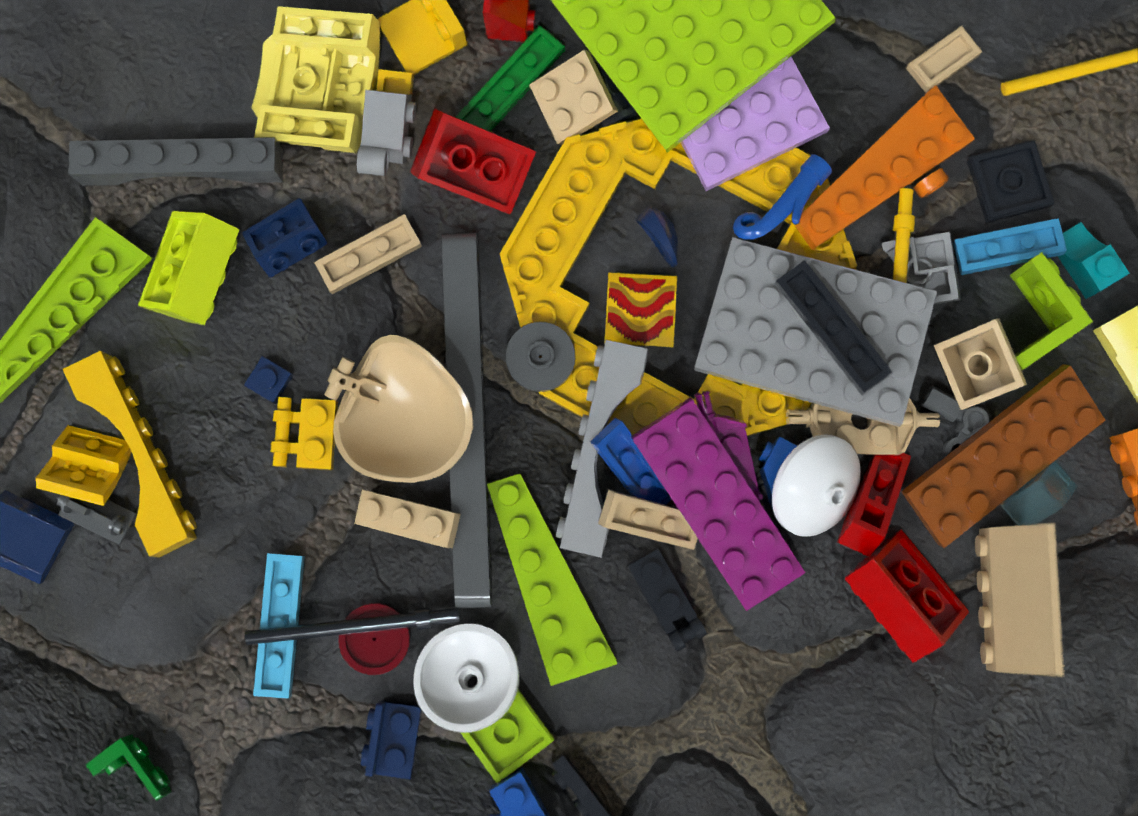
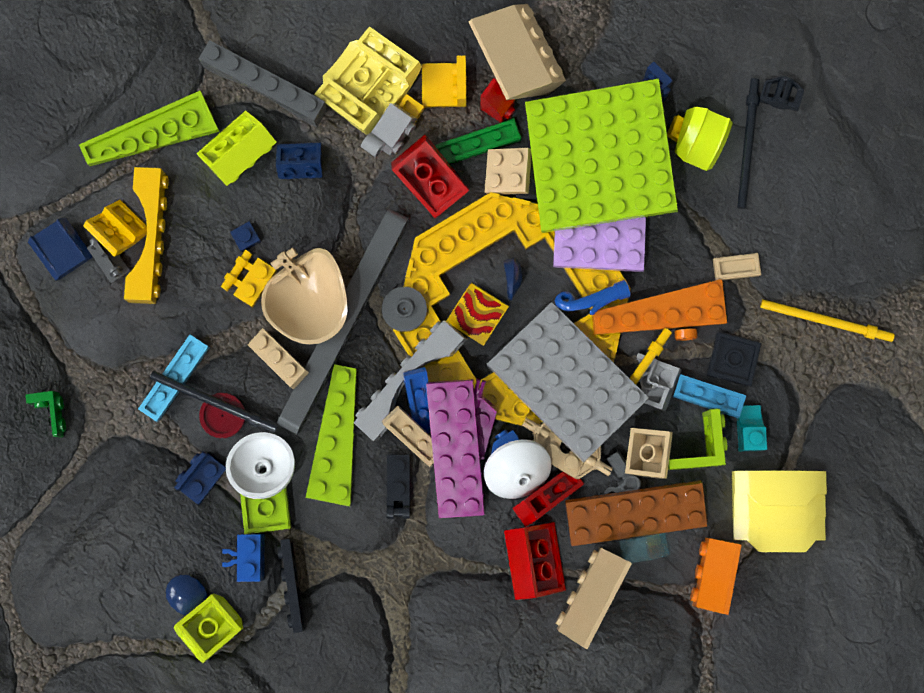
camera: 25 degrees right, 0 degrees up
(368, 254) = (341, 196): tan plate -> none
(833, 327) = (575, 385): black plate -> none

